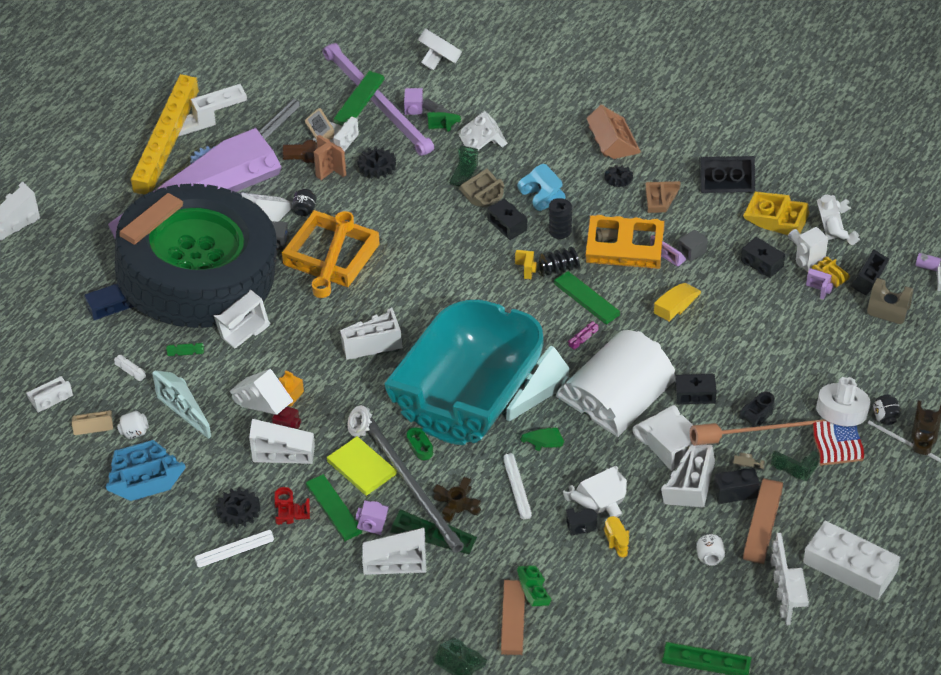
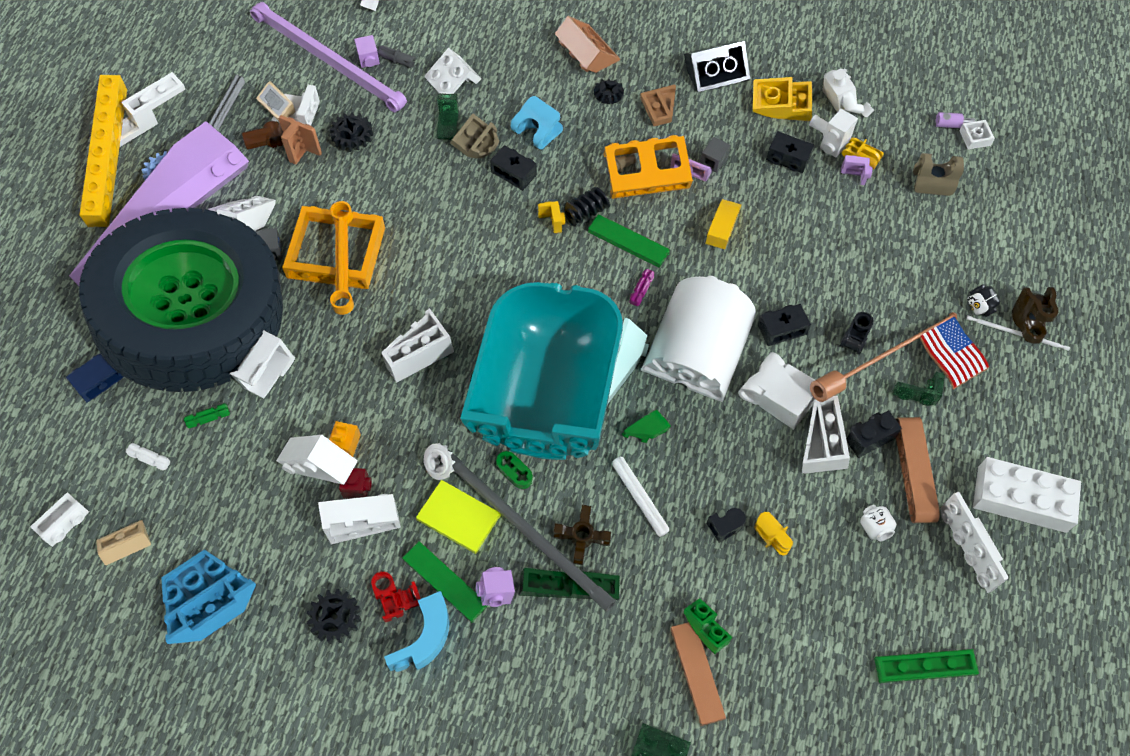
camera: 20 degrees left, 15 degrees up
(133, 425) = (174, 536): white head -> none
(151, 218) = (117, 273): nougat tile -> none
(177, 396) = (213, 480): light aqua wedge -> none
(234, 548) = (345, 673): white axle -> none
(303, 202) = (286, 197): black head -> none
(304, 543) = (432, 637): none -> medium azure arch
(359, 97) = (308, 60): green tile -> none
(396, 554) = (539, 631): white wedge -> none
(442, 120) = (405, 66): green slope -> none
(560, 218) = (571, 155): black piece -> none
(600, 492) = (737, 482): white torso -> none
(746, 460) = (877, 404): dark tan plate -> none
(850, 403) = (943, 295): white piece -> none
(869, 271) = (903, 146): black brick -> none

